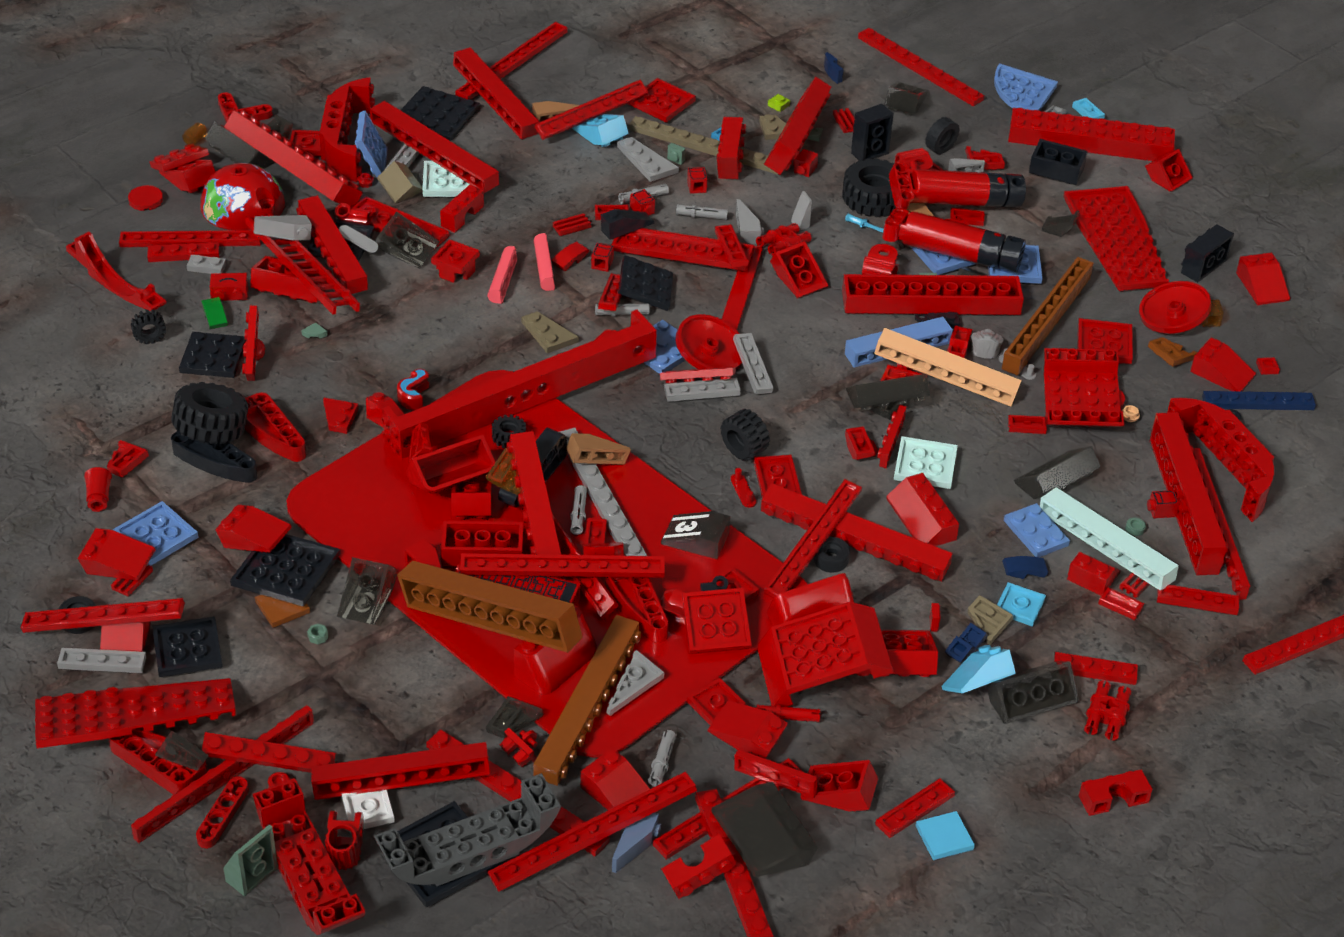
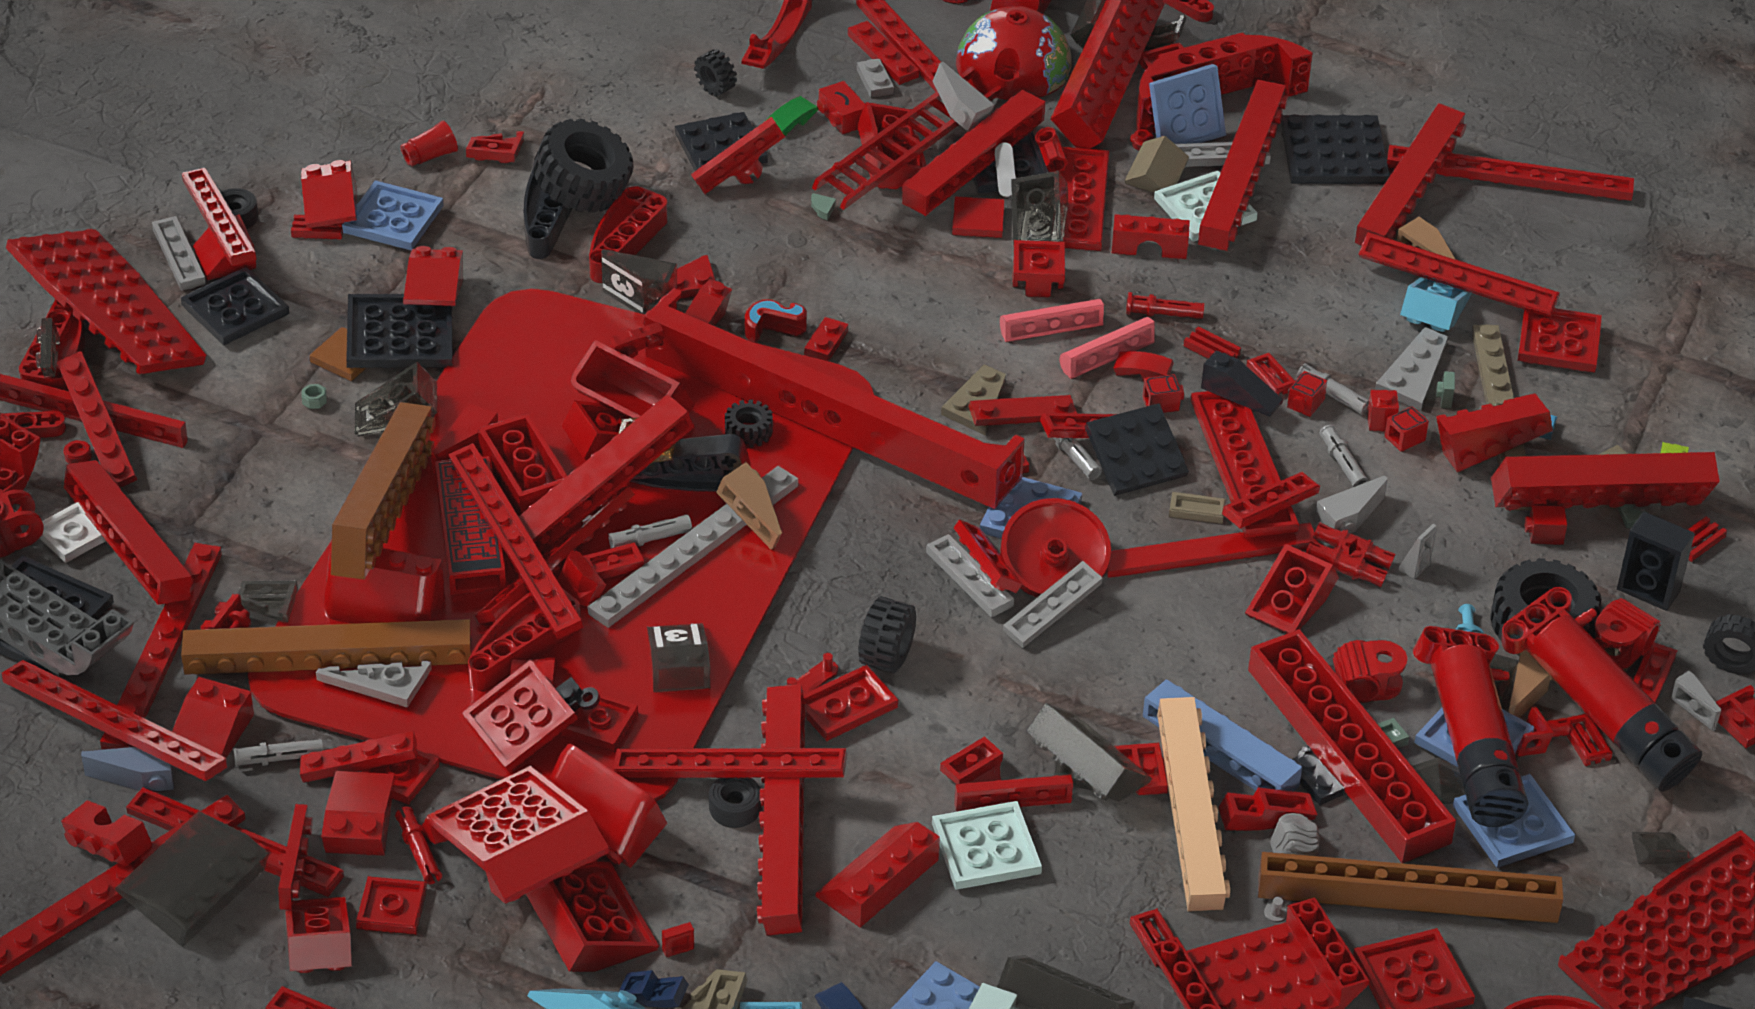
camera: 65 degrees right, 0 degrees up
(339, 432) = (637, 279): none -> clear smoke slope
(382, 270) = (978, 217): none -> red tile
(444, 375) = (826, 339): none -> red plate
(521, 232) = (1151, 305): none -> red pin
(575, 316) = (1018, 409): none -> red plate
(678, 181) = (1380, 406): none -> red brick
(697, 716) = (358, 756): none -> red plate
(702, 282) = (1197, 507): none -> dark tan tile
(829, 743) = (391, 905): none -> red tile

